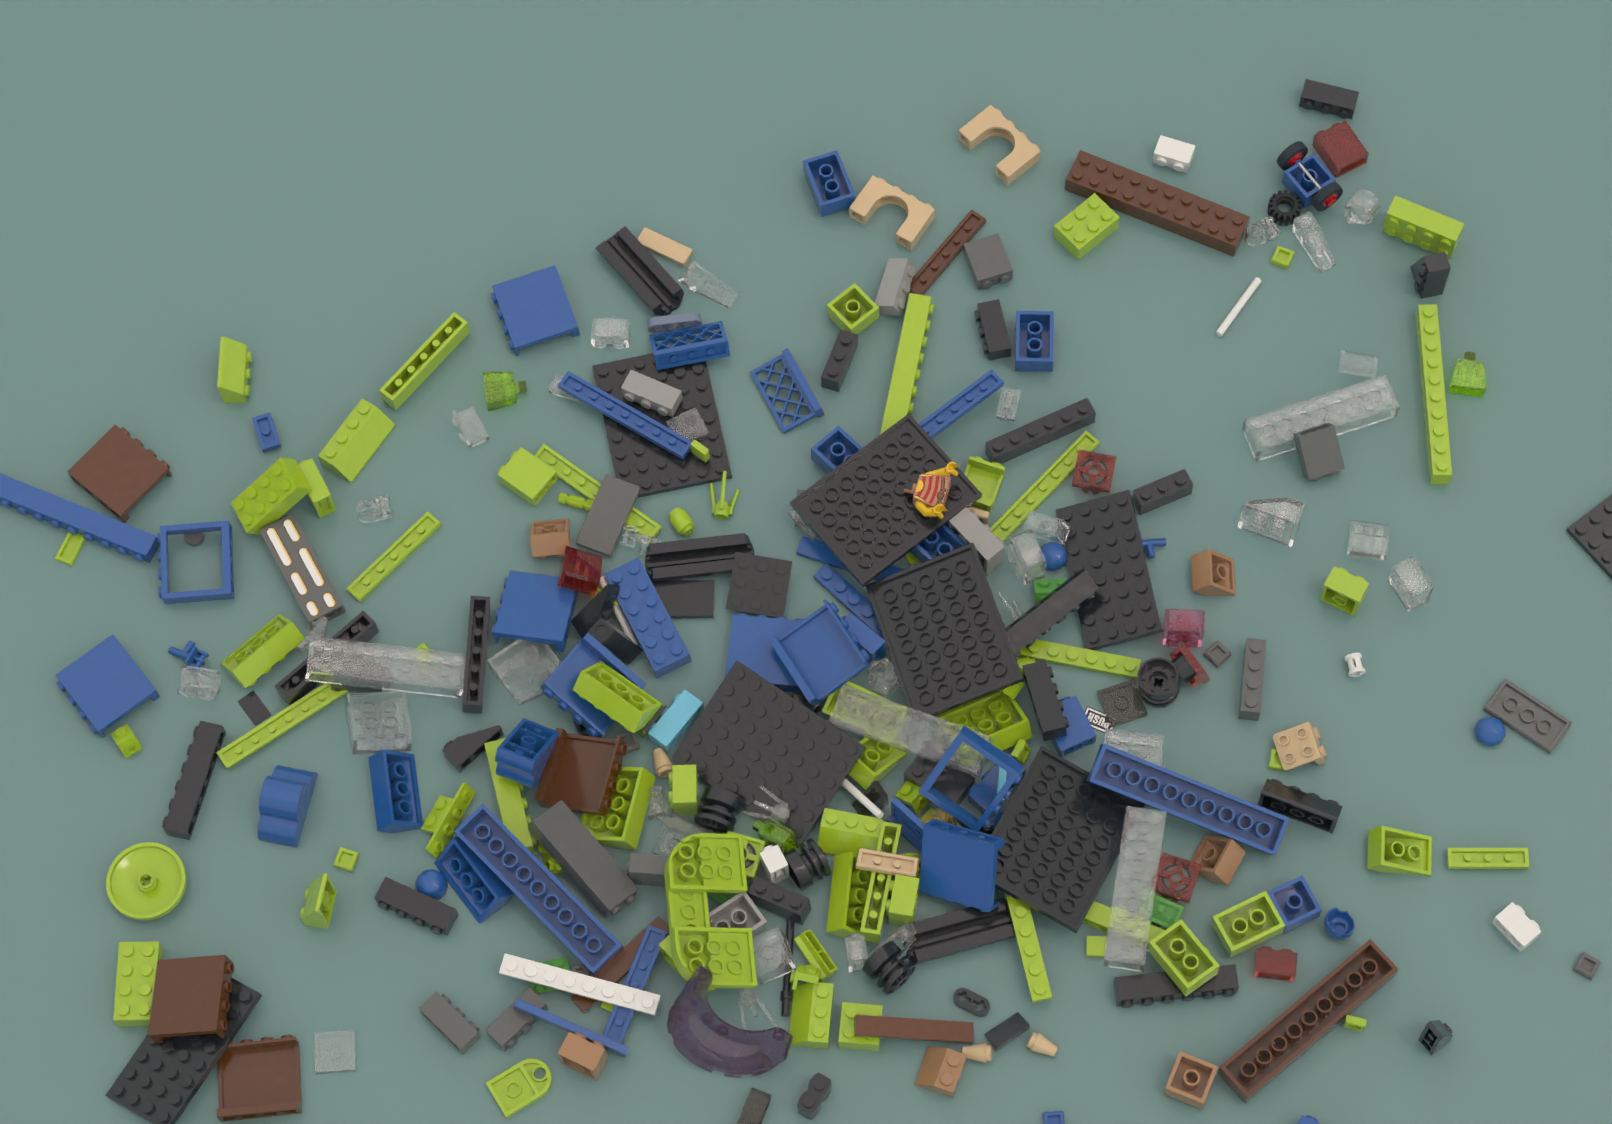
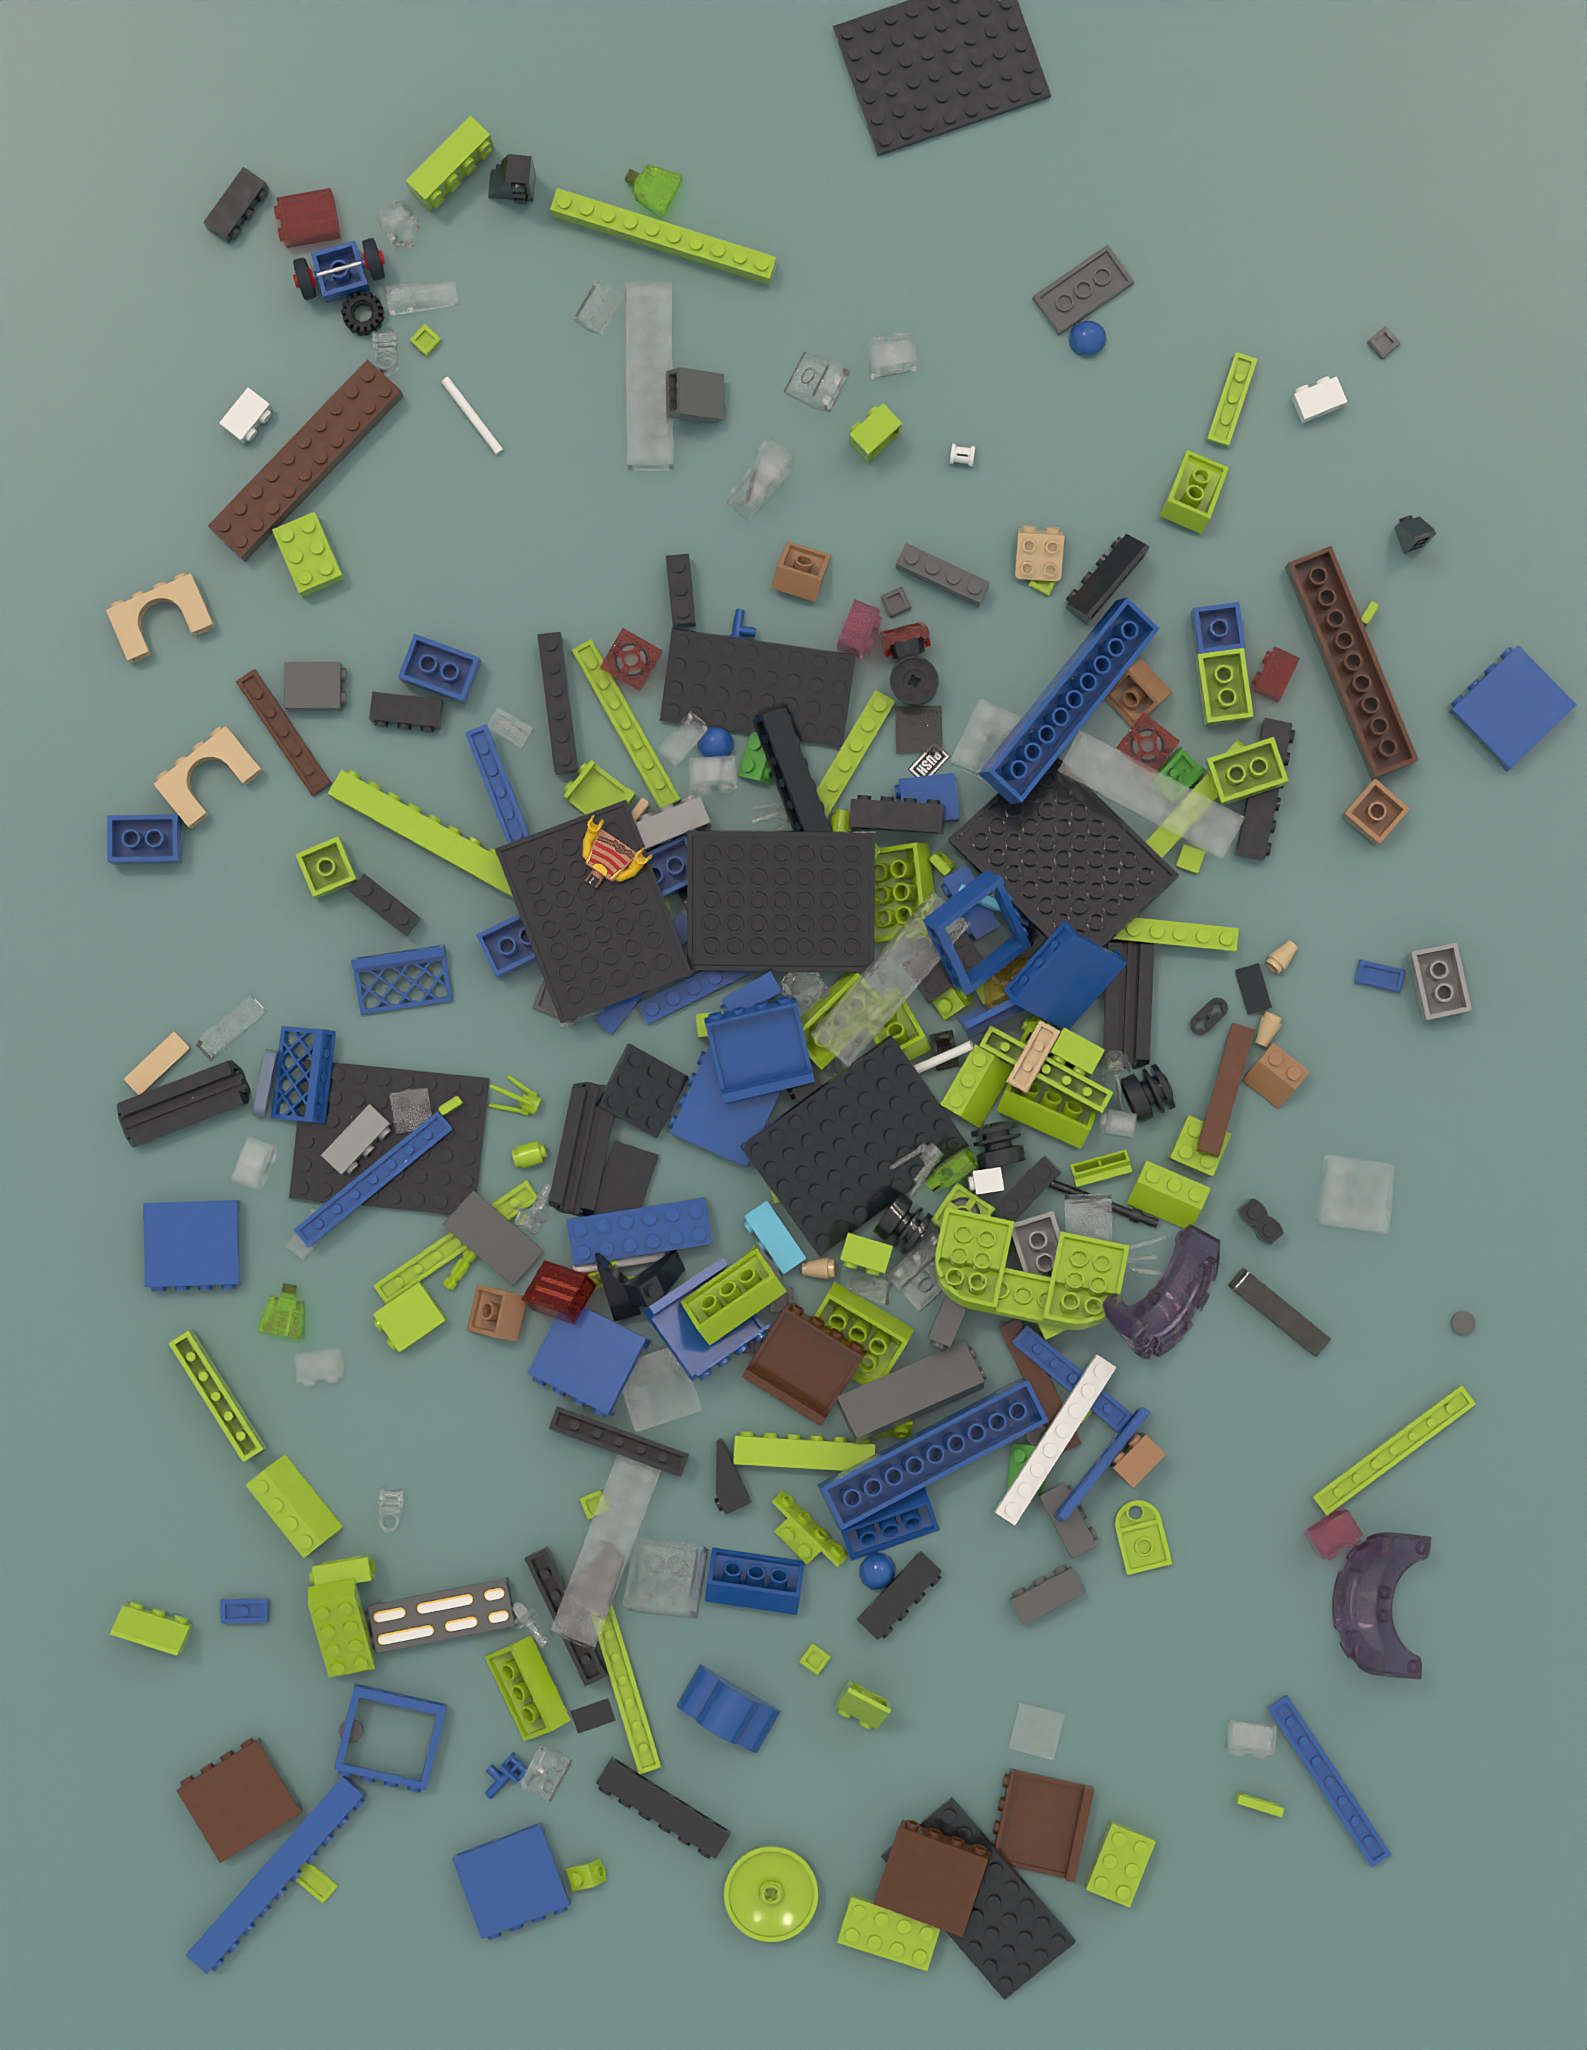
camera: 75 degrees left, 20 degrees up
(393, 557) = (457, 1502): lime tile -> none
(525, 753) = (768, 1418): blue brick -> none
(805, 973) = (1125, 1187): lime bracket -> none
(895, 286) = (311, 807): light grey brick -> none
(1339, 924) = (1254, 588): blue hair -> none

